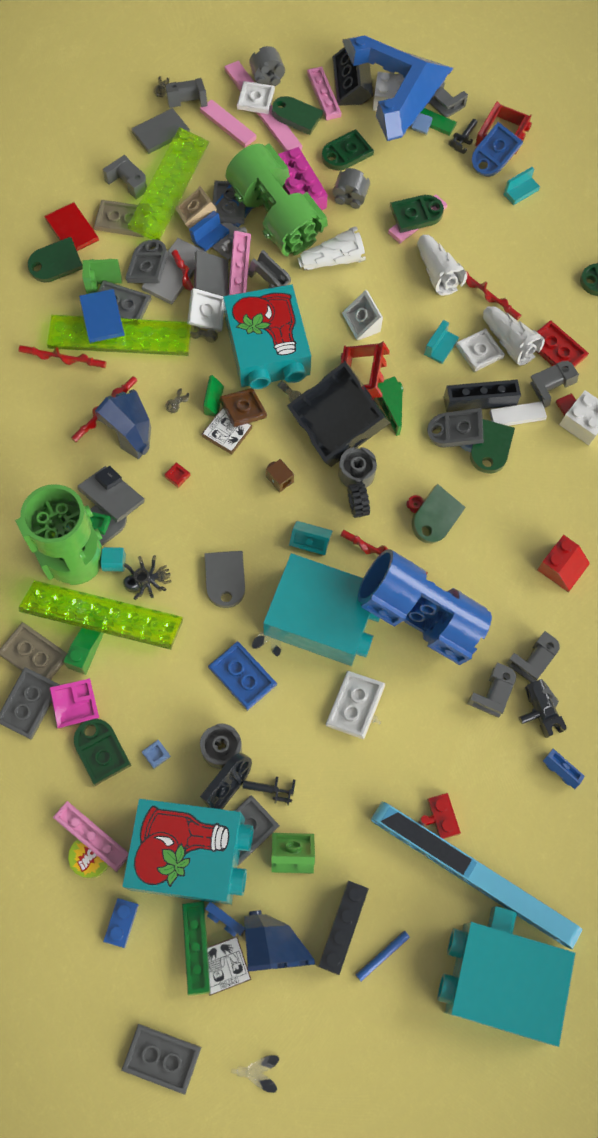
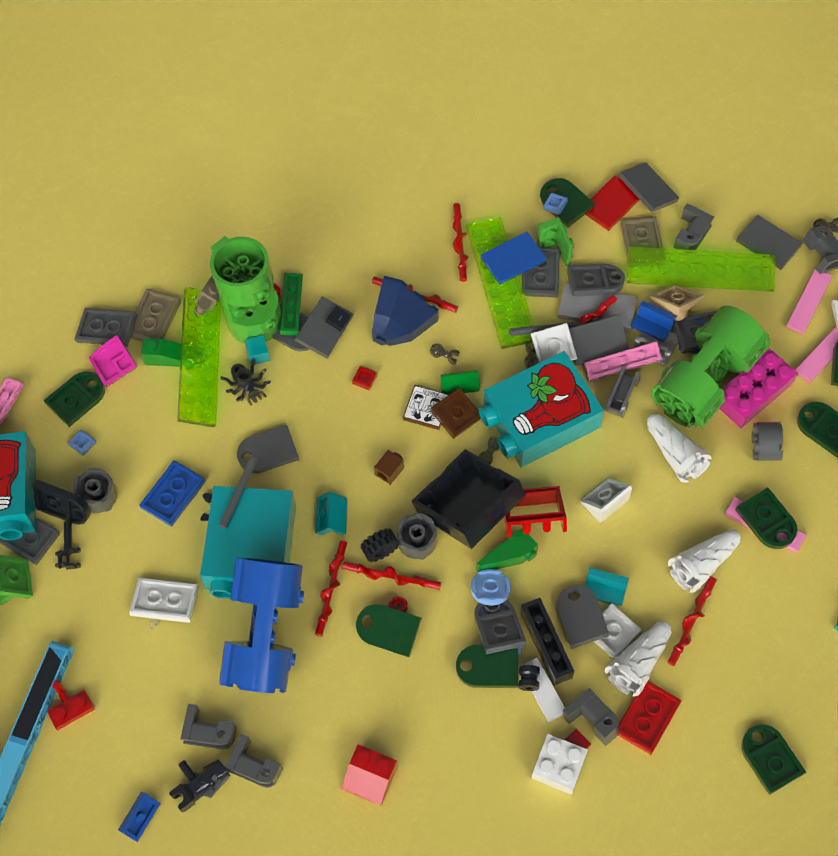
camera: 80 degrees right, 5 degrees down
(34, 581) = (207, 298): none -> dark tan brick
(57, 267) = (555, 203): none -> medium blue tile
(69, 194) = (648, 187): none -> dark grey tile
(184, 314) = (531, 329): none -> dark grey bar
(279, 600) = (238, 492): none -> dark grey bar
(383, 501) = (390, 572): none -> red piece
(419, 426) = (490, 587): none -> light blue tile
(464, 366) = (581, 617): none -> dark grey tile
(511, 416) = (529, 676): none -> black wheel

